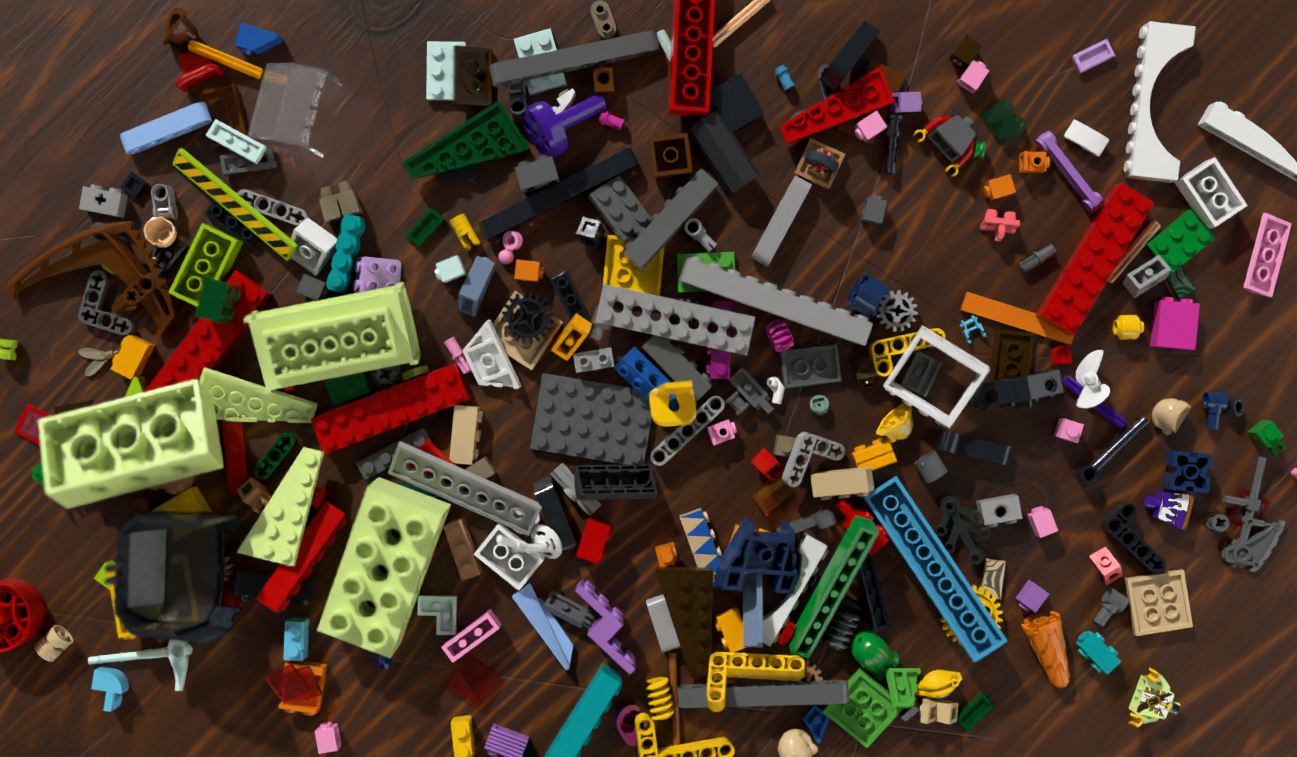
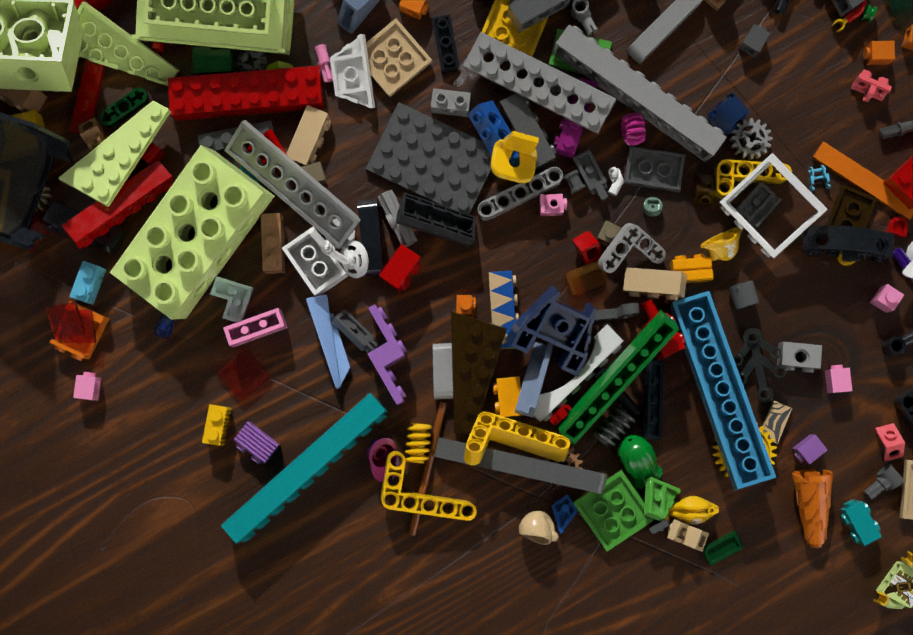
camera: 20 degrees right, 5 degrees down
(512, 324) = (408, 42): black gear -> none
(571, 337) = (436, 73): light orange brick -> none
(973, 447) = (773, 279): black beam -> none

